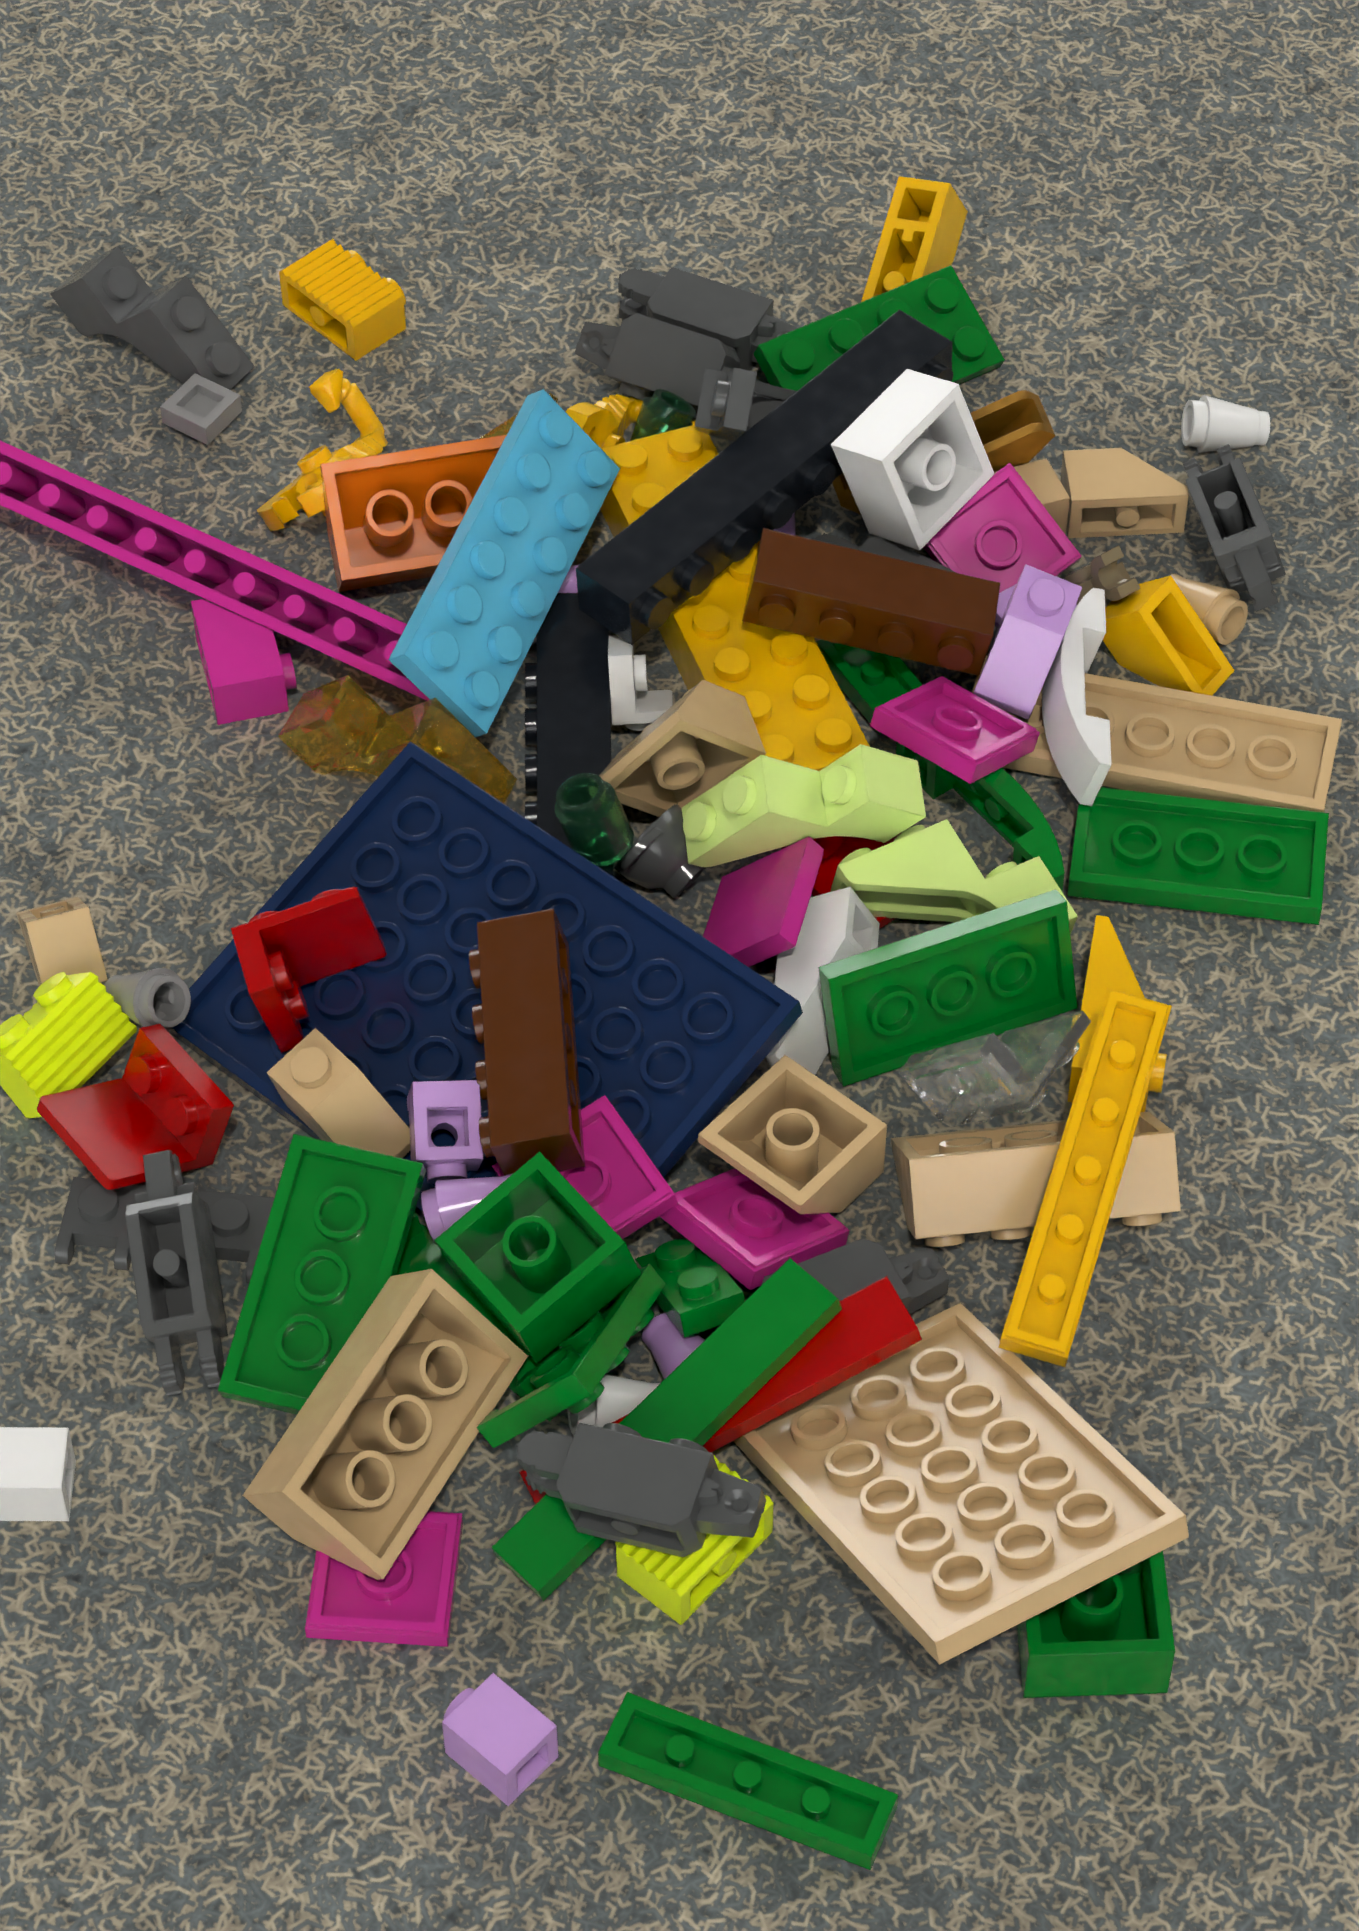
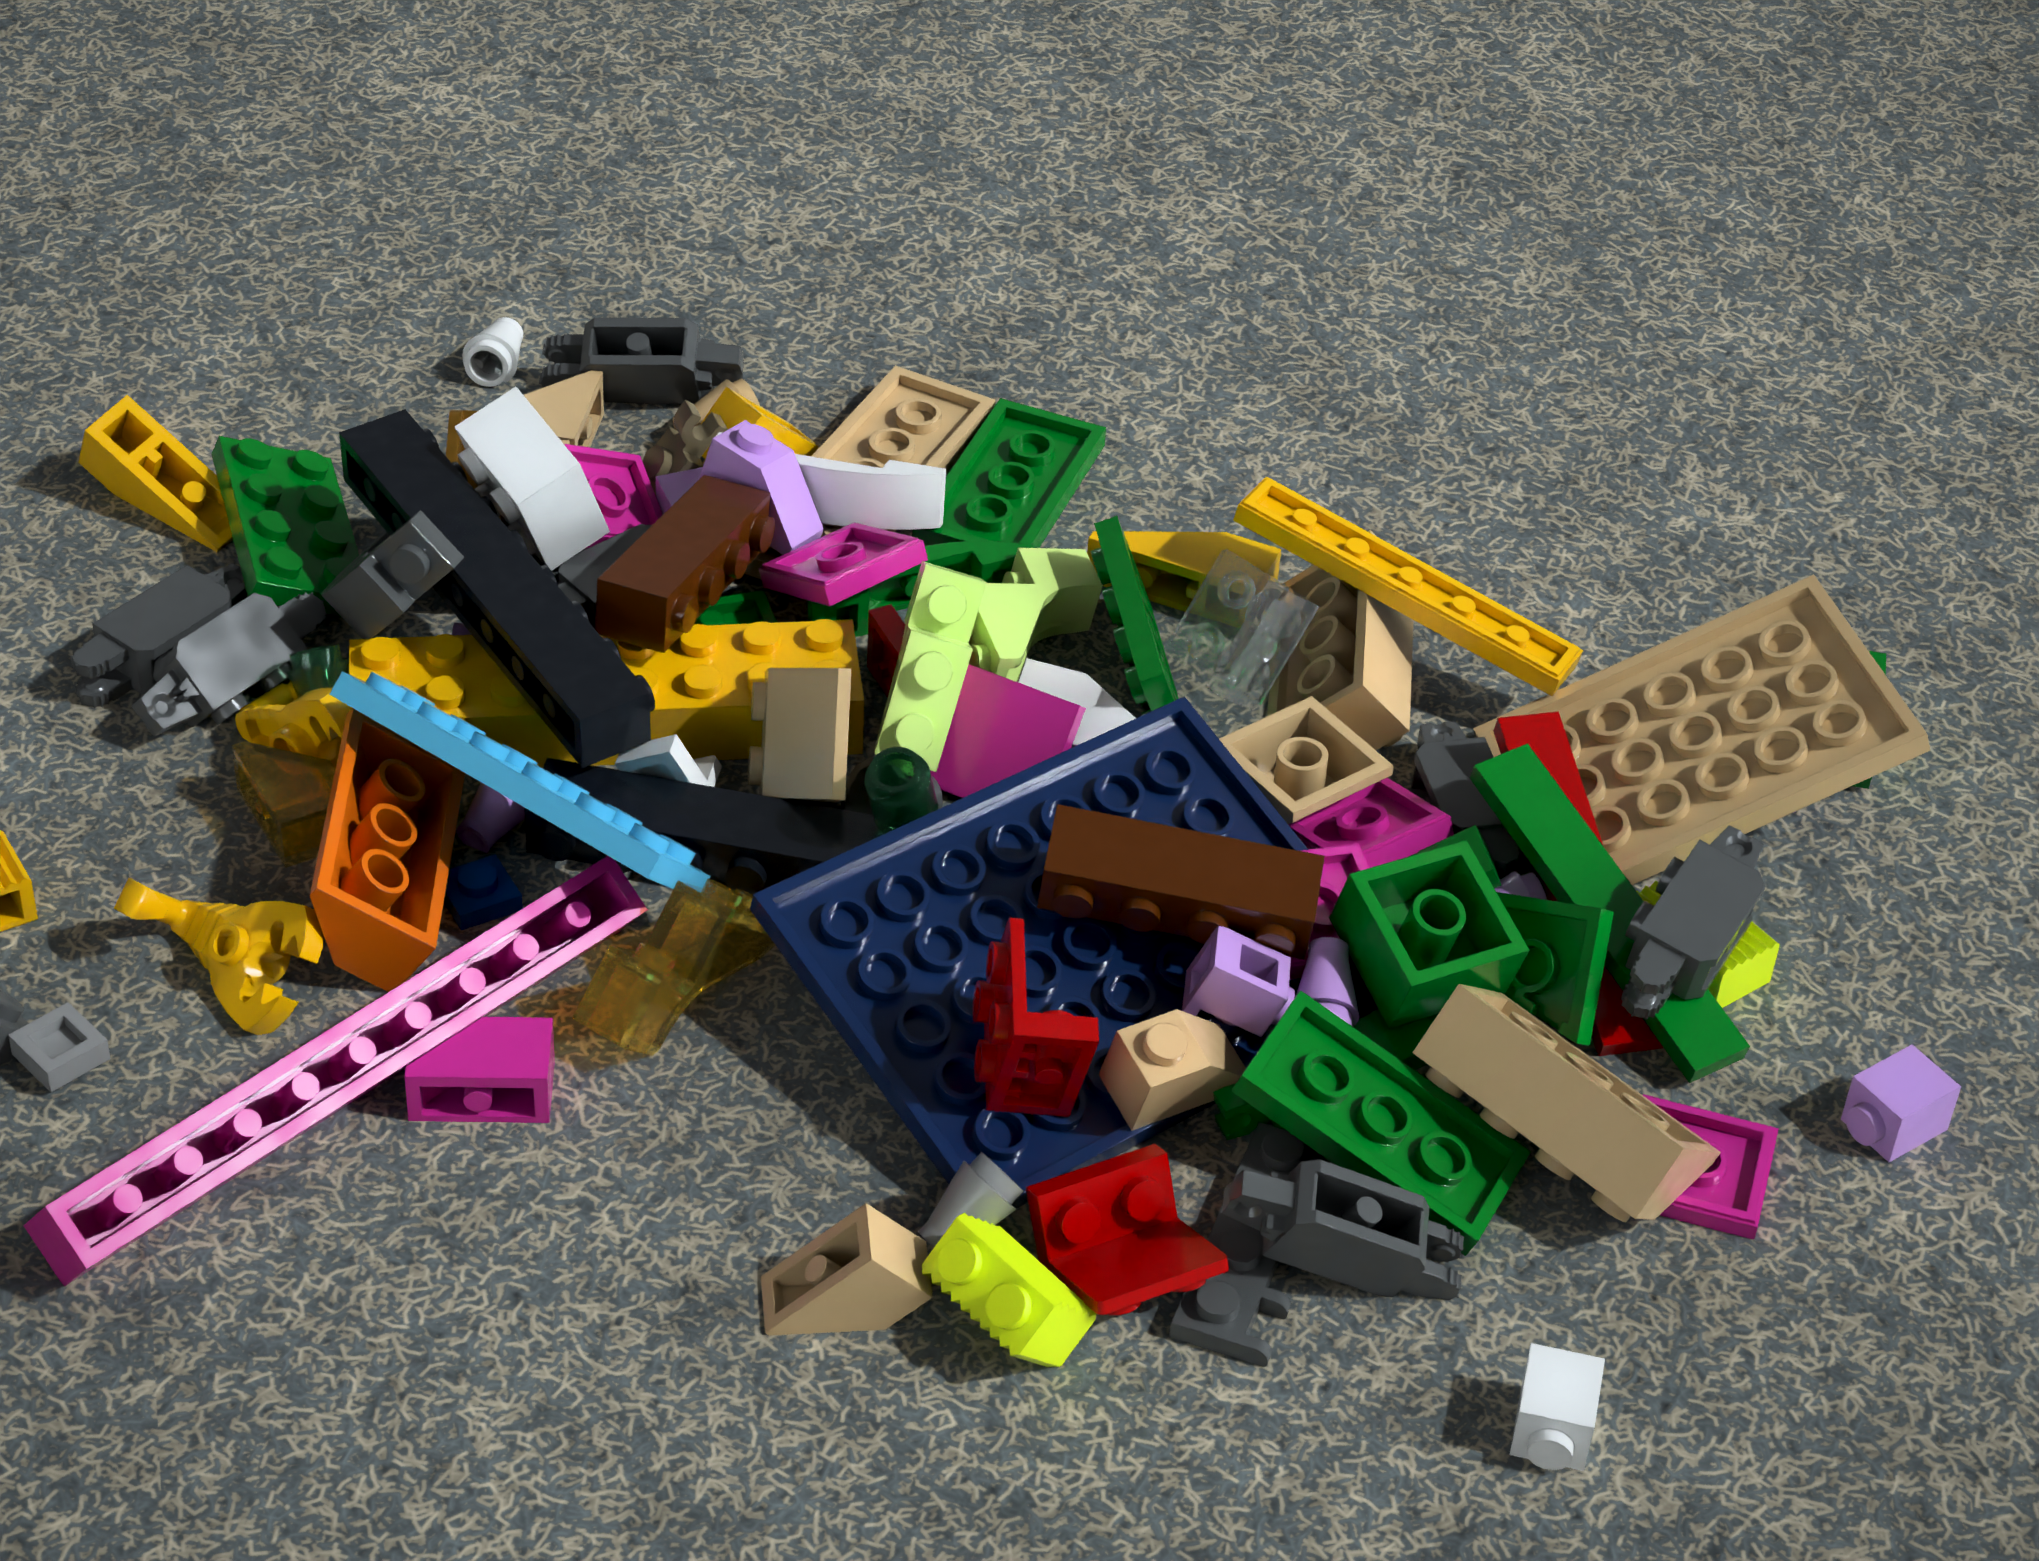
camera: 80 degrees left, 10 degrees down
(748, 1780) = (1944, 960): green plate -> none

